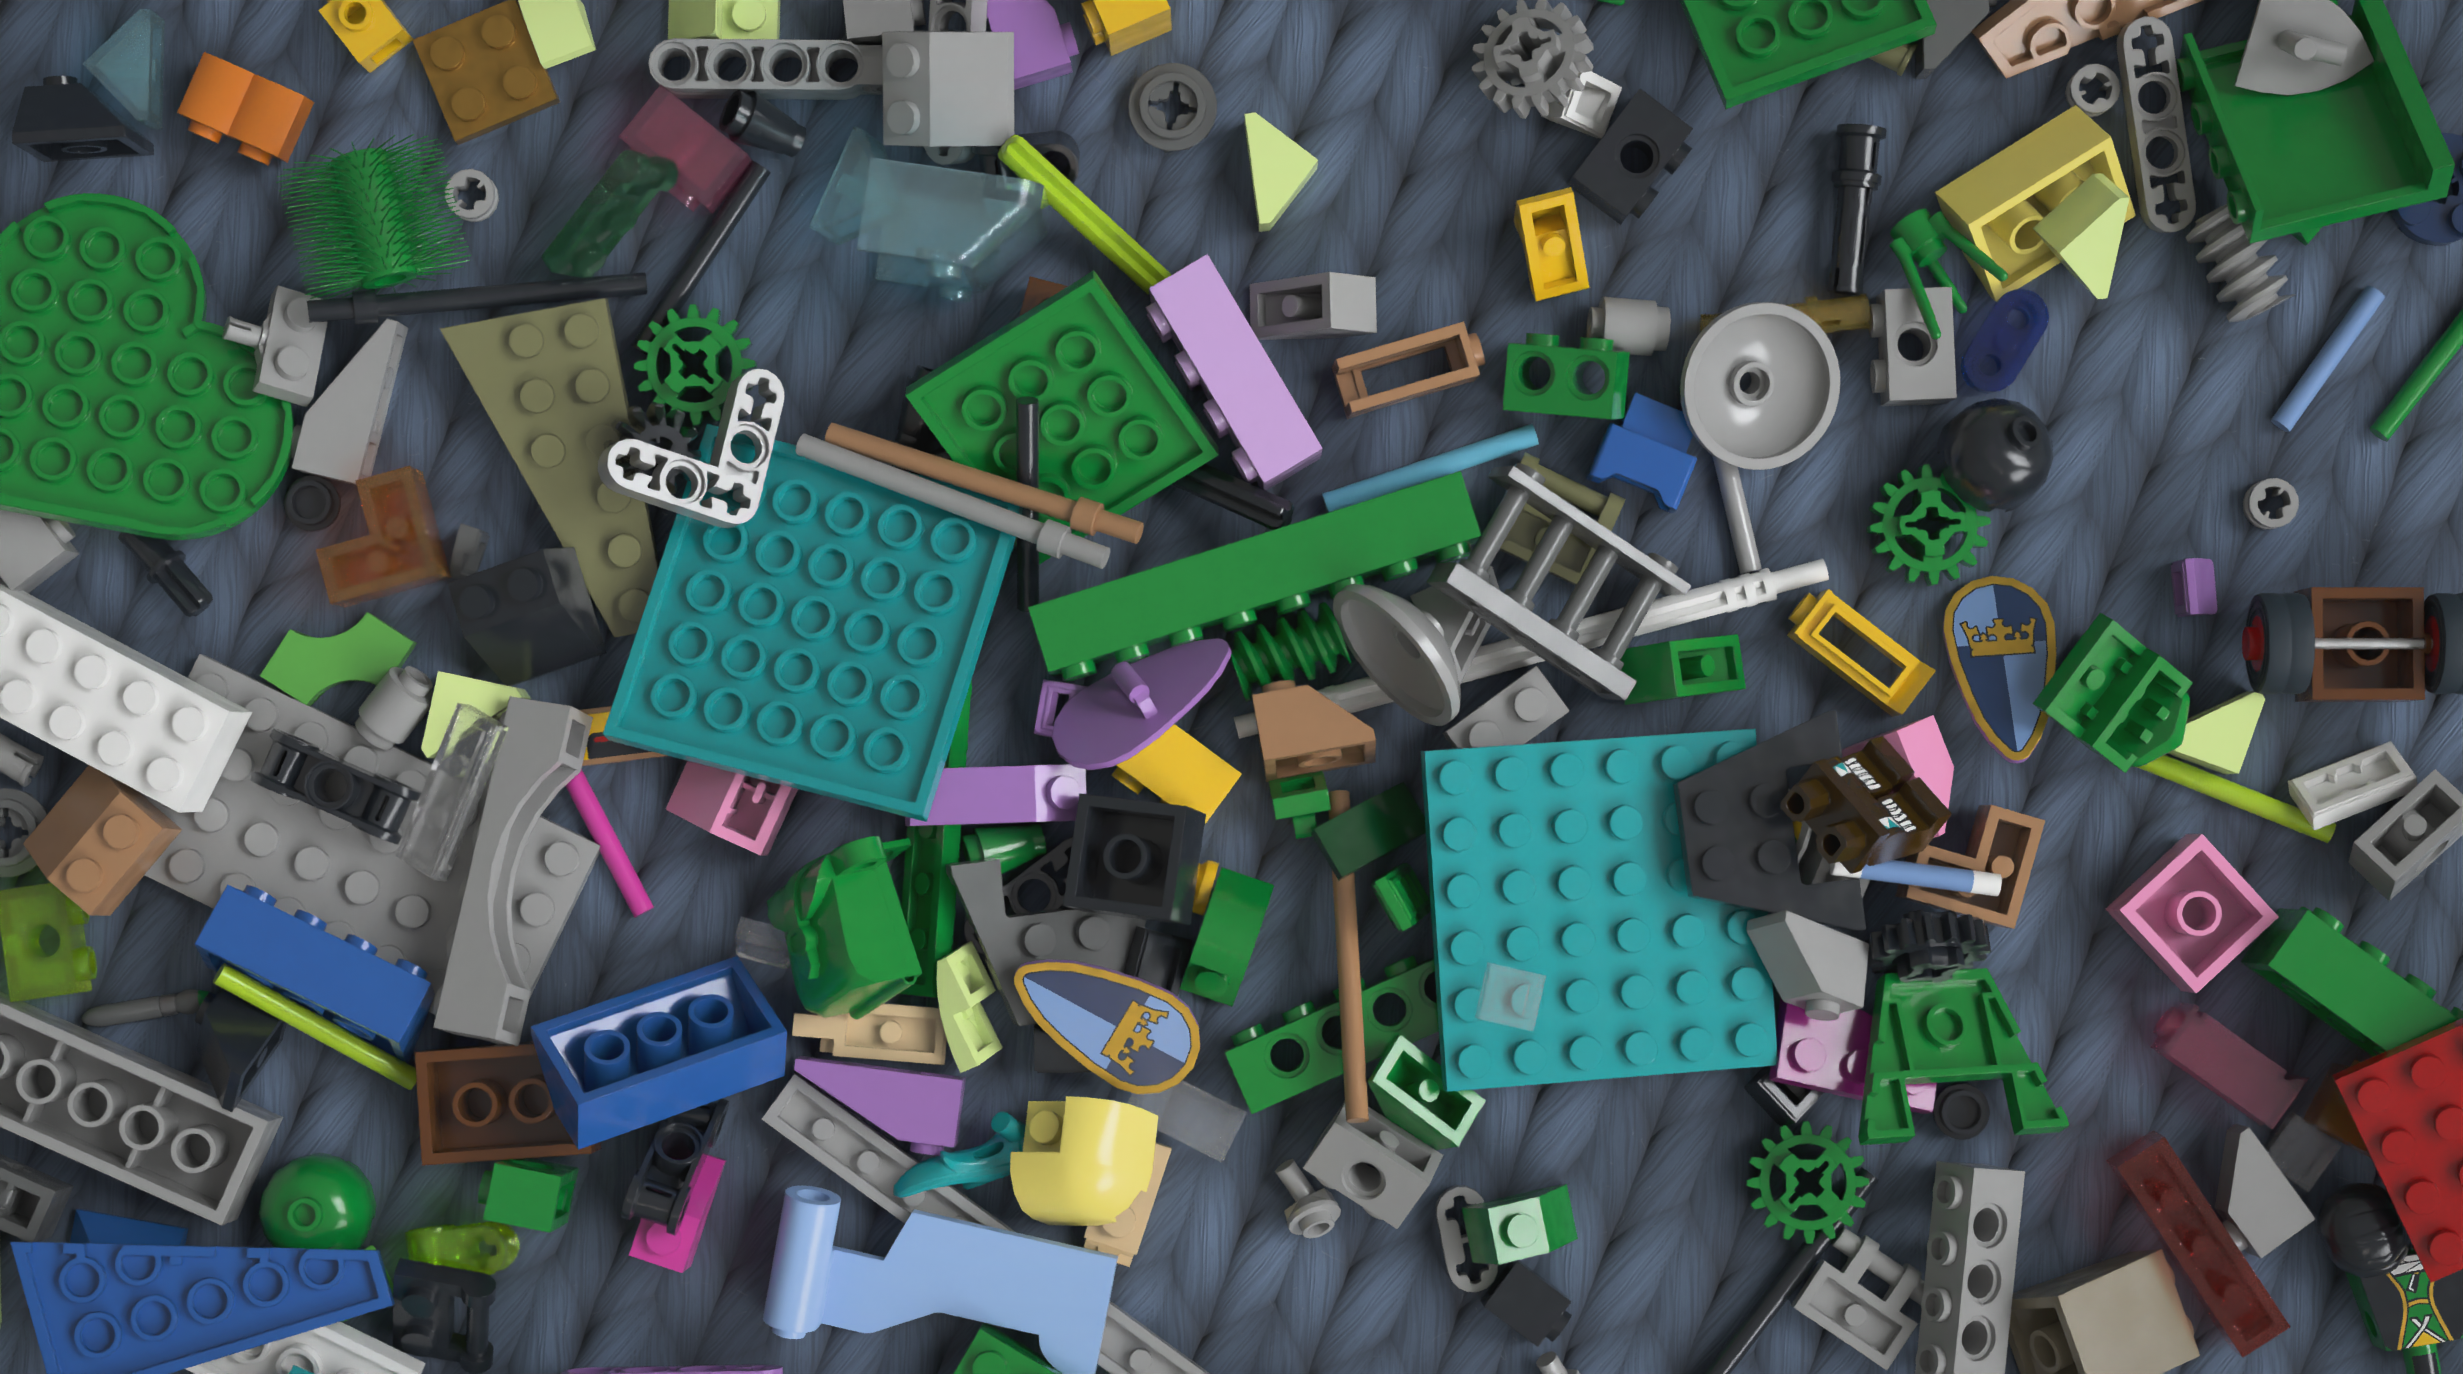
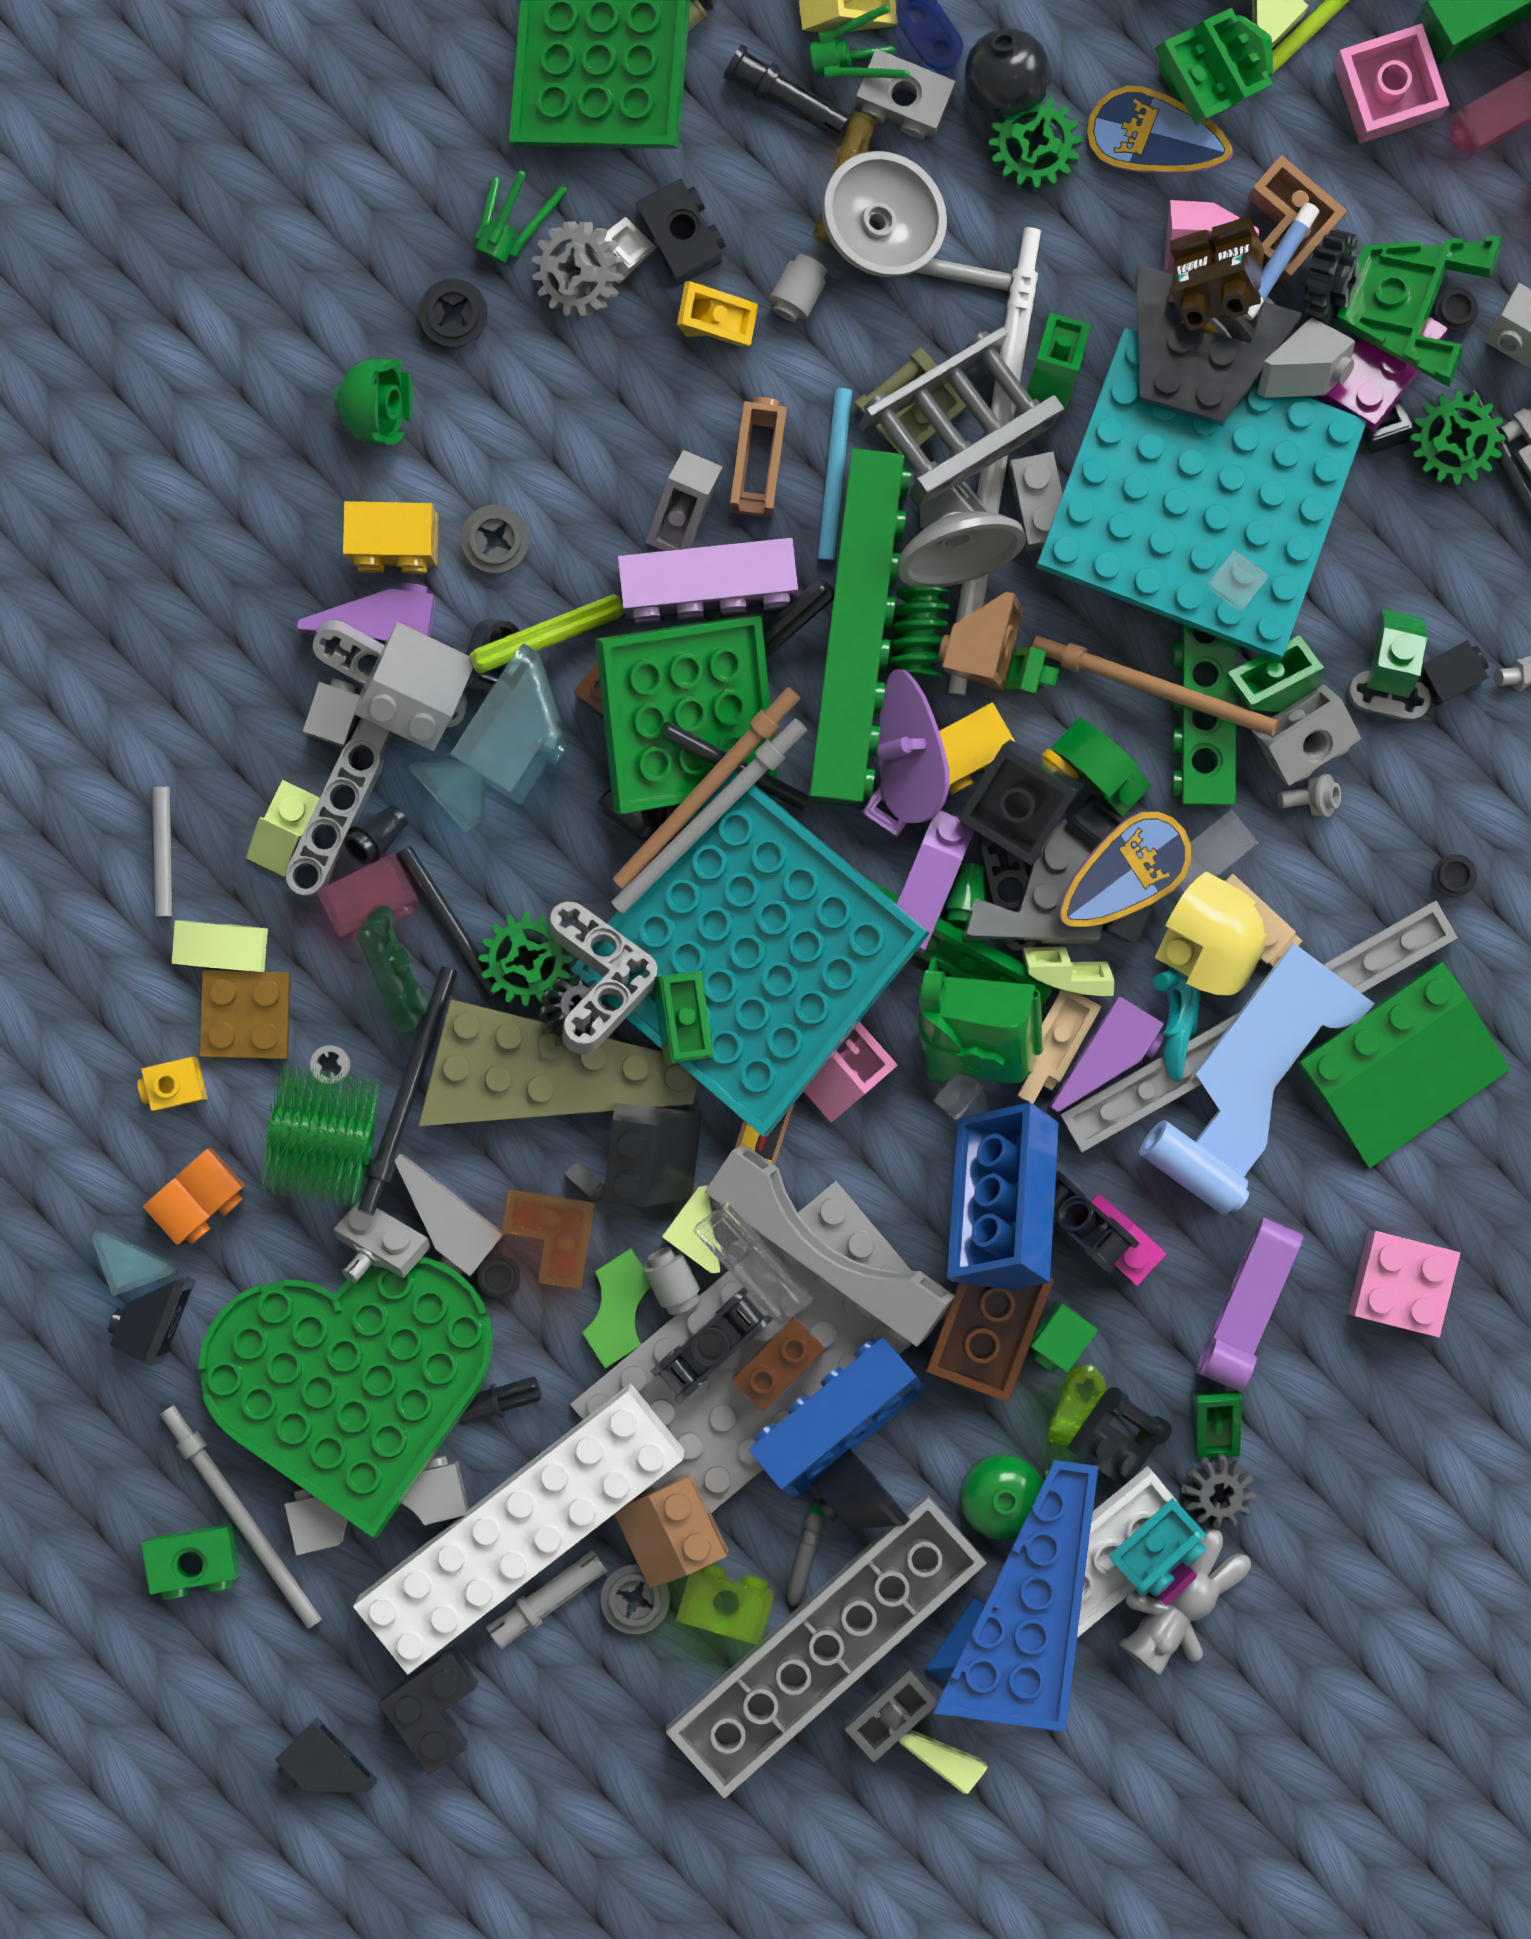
camera: 65 degrees left, 0 degrees up
(315, 1026) = (874, 1436): lime bar -> none
(348, 874) = (778, 1363): none -> reddish brown brick
(610, 846) = (841, 1174): dark pink bar -> none
(702, 579) = (683, 1017): none -> green slope
(1277, 169) = (572, 486): yellowish green slope -> none
(1370, 830) = (1072, 631): dark green slope -> none
(1401, 896) = (1129, 632): green slope -> none
(1565, 390) = (826, 352): green brick -> none
(1647, 451) = (893, 315): blue piece -> none
(1811, 617) = (1062, 253): yellow window -> none

